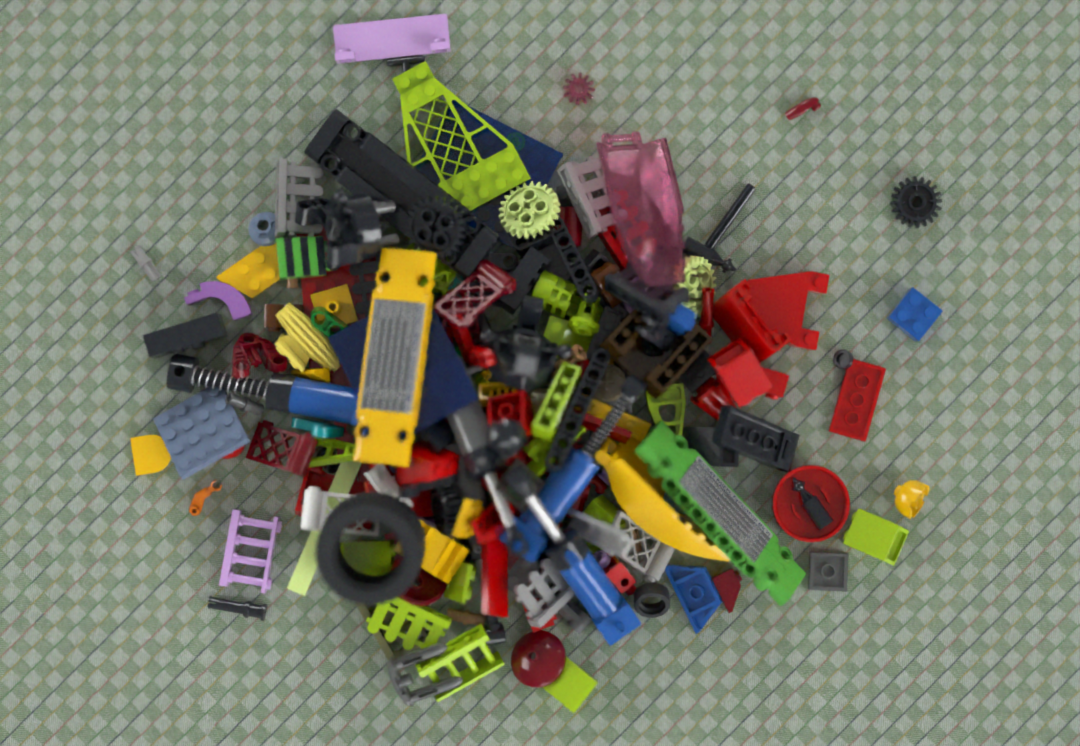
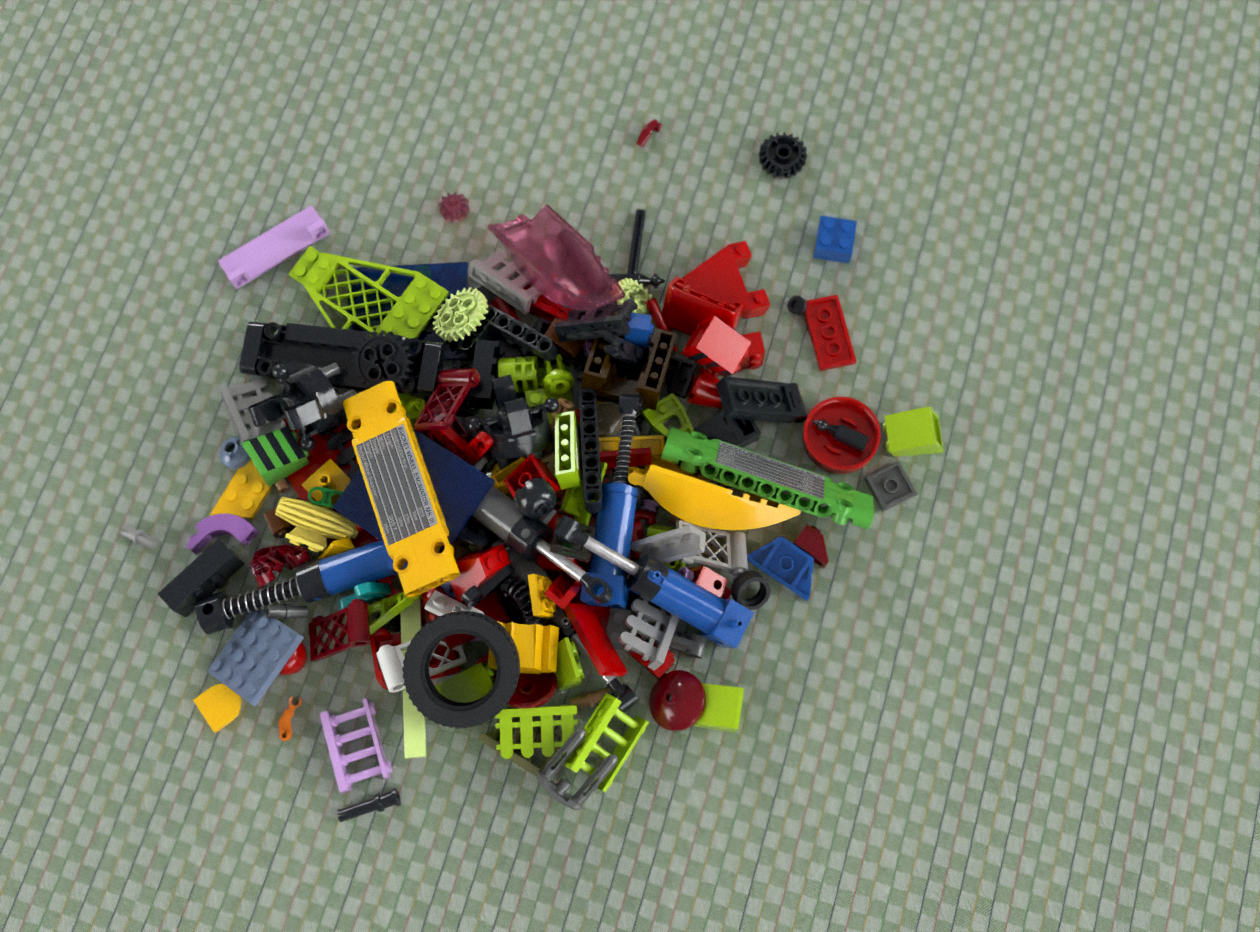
camera: 25 degrees left, 15 degrees down
(405, 61) = (292, 260): black piece -> none
(910, 497) = (922, 384): yellow cylinder -> none

